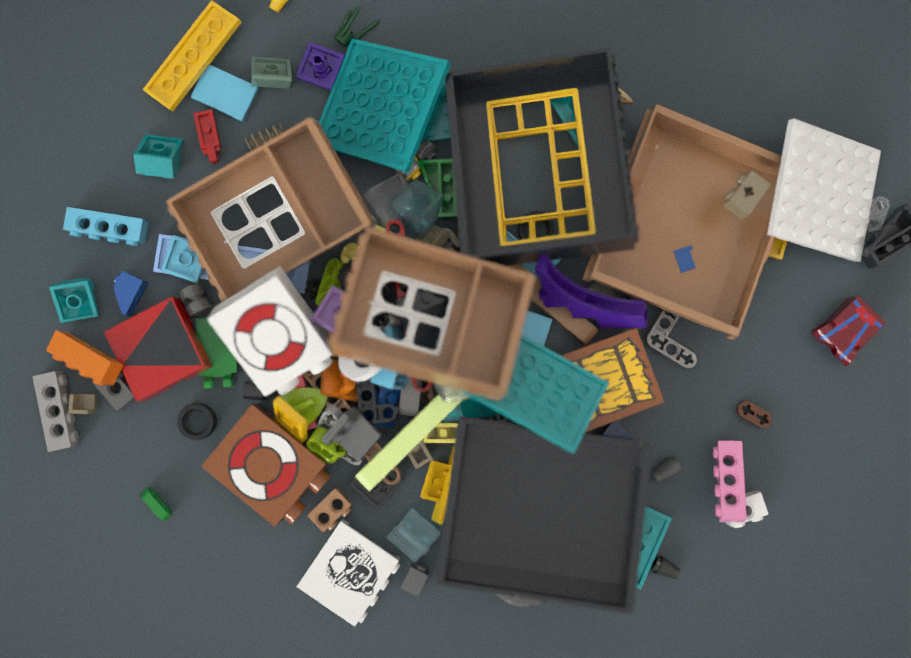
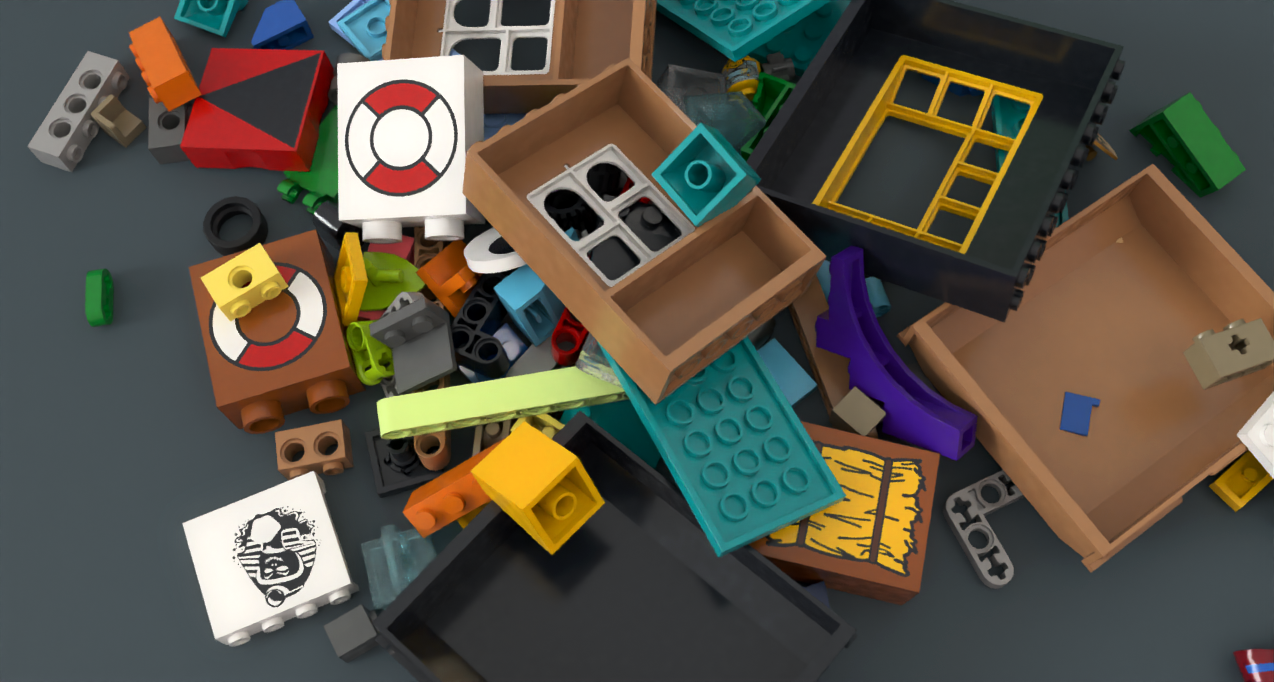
camera: 40 degrees right, 20 degrees down
(232, 467) = (227, 282): none -> light yellow brick
(424, 480) = (447, 497): none -> orange brick
(455, 276) = (705, 175): none -> teal slope
(467, 473) = (539, 486): none -> yellow slope
(585, 330) = (856, 413): none -> dark tan panel
(663, 65) = (1191, 144): none -> green wedge

